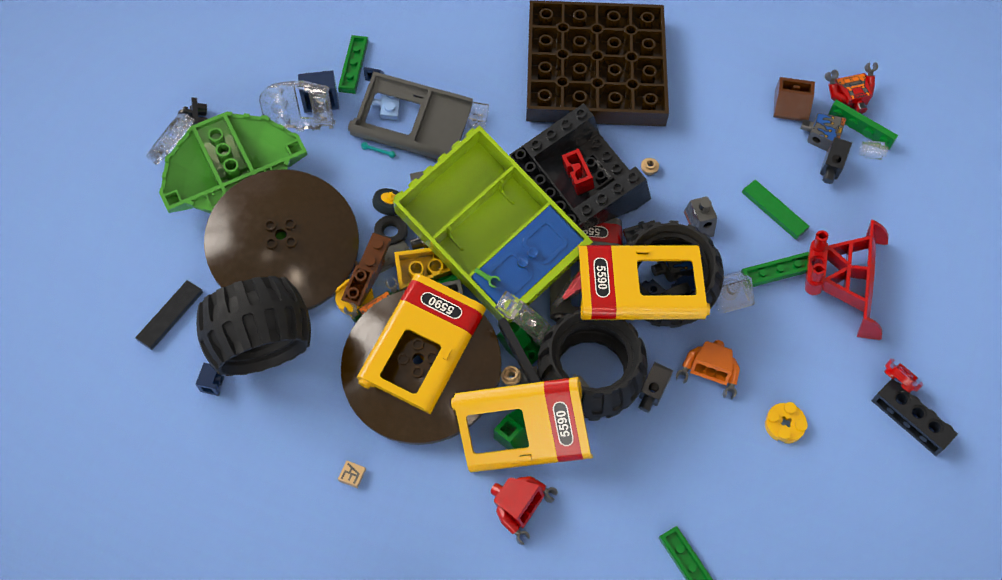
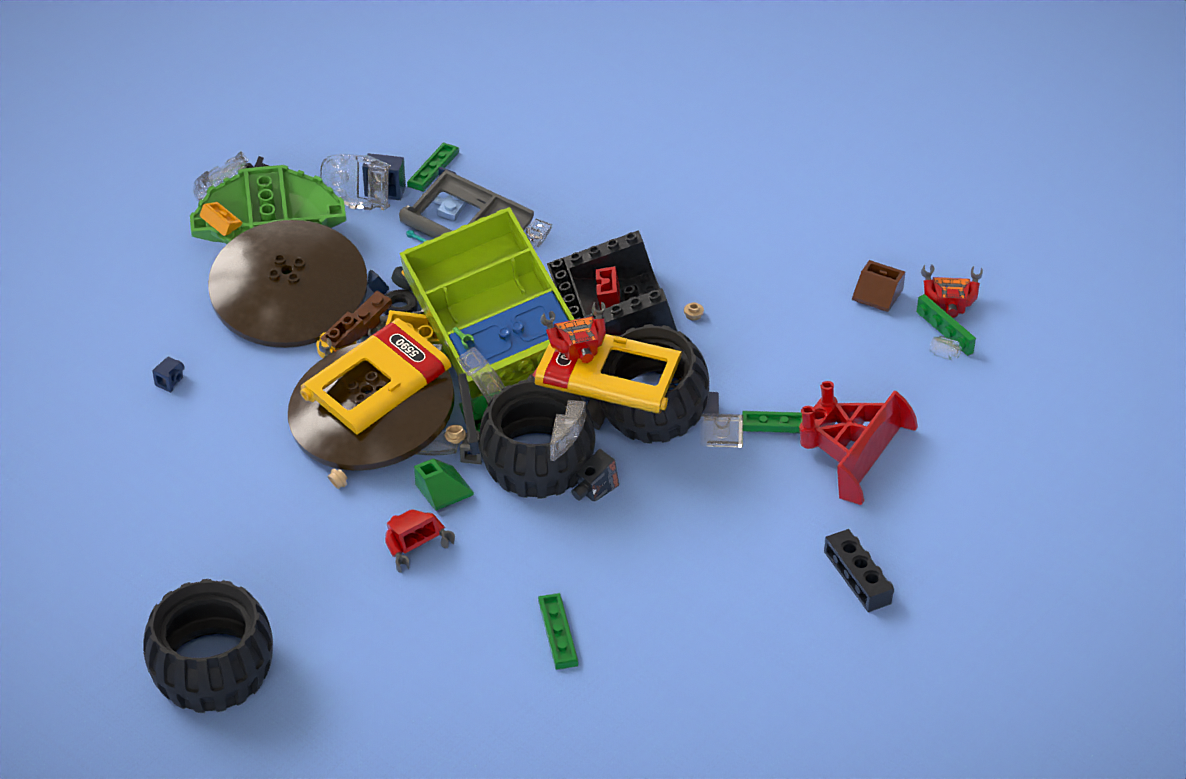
camera: 20 degrees right, 20 degrees down
(169, 315) = (155, 320): black tile -> none
(190, 188) = (220, 218): none -> light orange slope
(253, 325) = (249, 323): black tyre -> none
(351, 474) = (264, 477): tan tile -> none
(361, 215) = (375, 283): none -> dark blue slope
(422, 455) = (337, 478): none -> tan plate
(551, 420) = (466, 463): yellow piece -> none
(597, 57) = (687, 210): dark brown brick -> none
(610, 263) = (577, 337): none -> red torso
(635, 366) = (567, 428): none -> clear slope
(701, 215) = (721, 350): dark grey torso -> none
(713, 363) = (666, 475): orange torso -> none
(775, 209) = (805, 370): green tile -> none
(793, 414) = (709, 546): yellow plate -> none
(823, 129) = (900, 321): torso -> none
(835, 160) = (894, 343): black torso -> none
(904, 375) = (863, 533): red plate -> none

